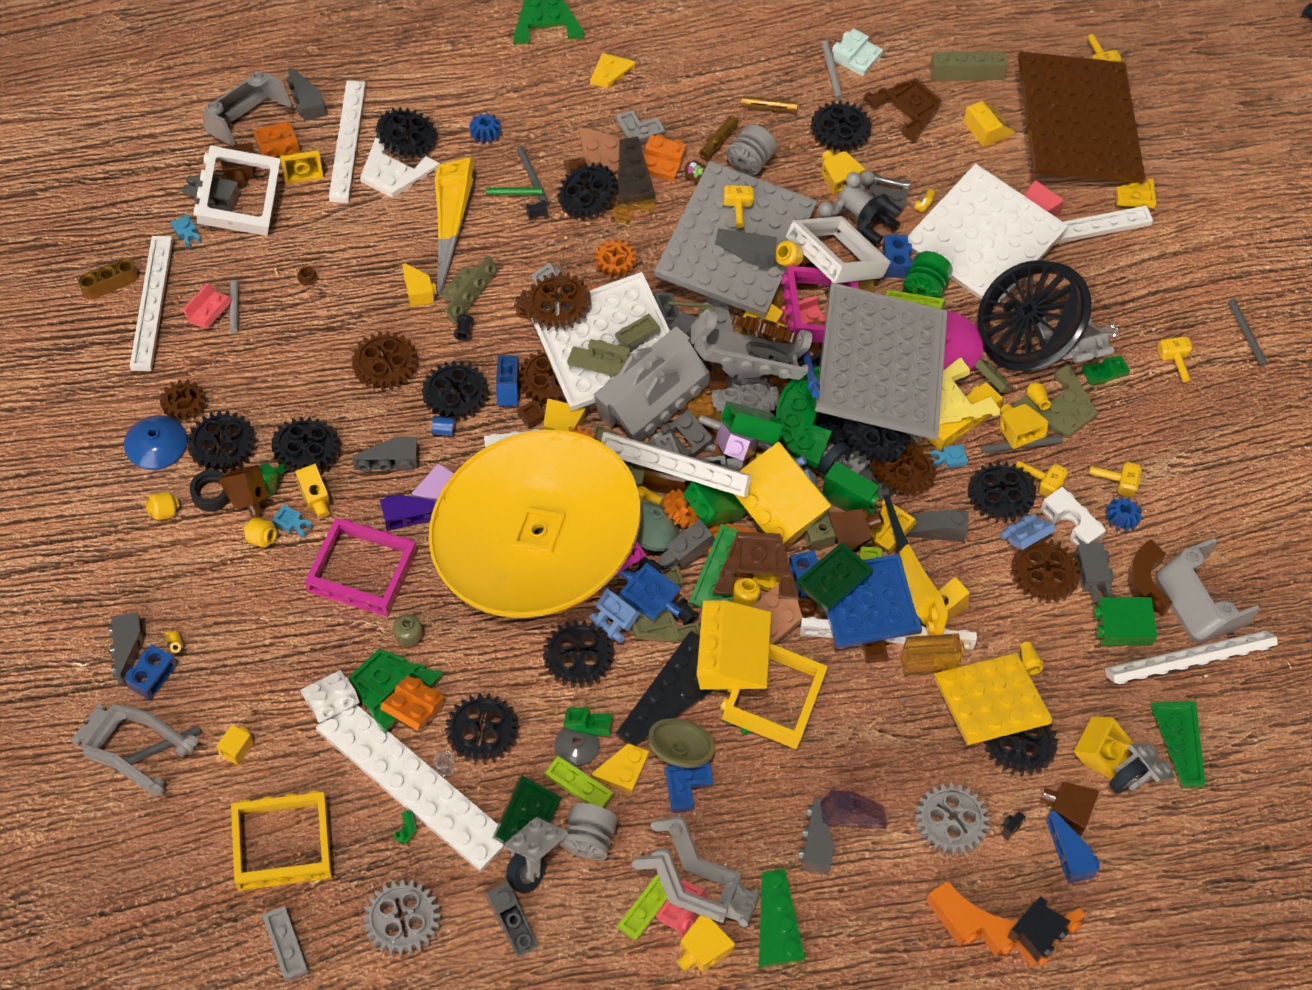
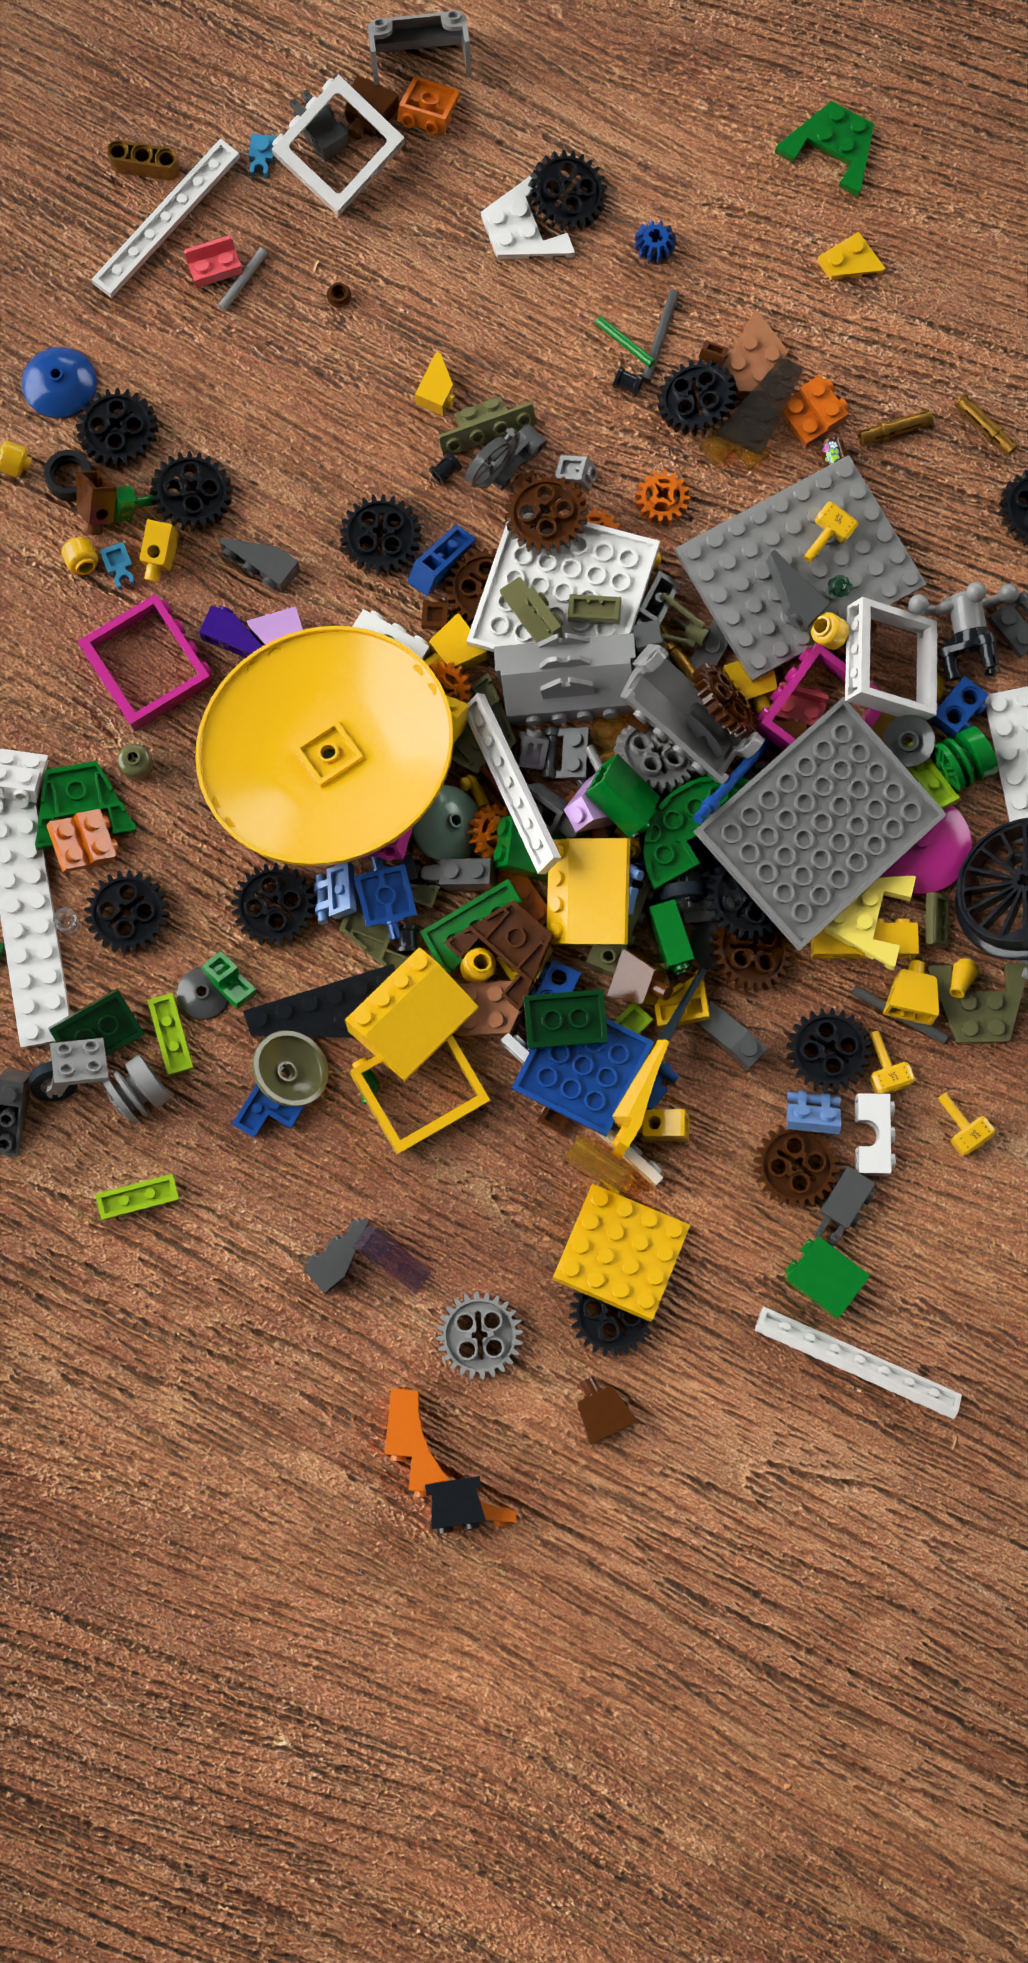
camera: 40 degrees right, 20 degrees up
(182, 400) = (126, 357): reddish brown gear -> none
(301, 166) = (429, 155): yellow slope -> none
(307, 95) = (499, 77): dark grey slope -> none
(347, 142) = (503, 156): white plate -> none
(368, 367) = (362, 453): reddish brown gear -> none
(443, 426) = (338, 566): blue piece -> none
(453, 188) = (559, 297): yellow plate -> none
(501, 291) = (503, 456): none -> dark grey piece
(623, 768) = (224, 1049): yellow wing -> none
(632, 127) = (814, 358): light grey plate -> none
(677, 917) = (167, 1224): coral bracket -> none
(704, 945) = (155, 1271): yellow torso -> none
(735, 899) = (215, 1251): light grey piece -> none
(751, 149) = (910, 471): light grey wheel -> none
(771, 228) = (839, 586): none -> clear green plate
(779, 930) = (238, 1306): green wing -> none
(836, 168) = (990, 562): yellow torso -> none
(888, 280) = (916, 729): none -> dark grey dish
(952, 456) = (816, 975): dark azure plate -> none
(1012, 824) = (530, 1384): black plate -> none
(1031, 659) = (696, 1243): yellow cone -> none
(1073, 852) = (562, 1459): blue slope -> none
(1103, 746) = (687, 1382): yellow slope -> none
(1123, 513) = (925, 1174): blue gear -> none
(1134, 773) = (713, 1432): light grey plate -> none
(1140, 578) = (899, 1233): reddish brown arch -> none
(1182, 740) = (773, 1429): green wing -> none
(1191, 601) = (909, 1306): light grey windscreen -> none

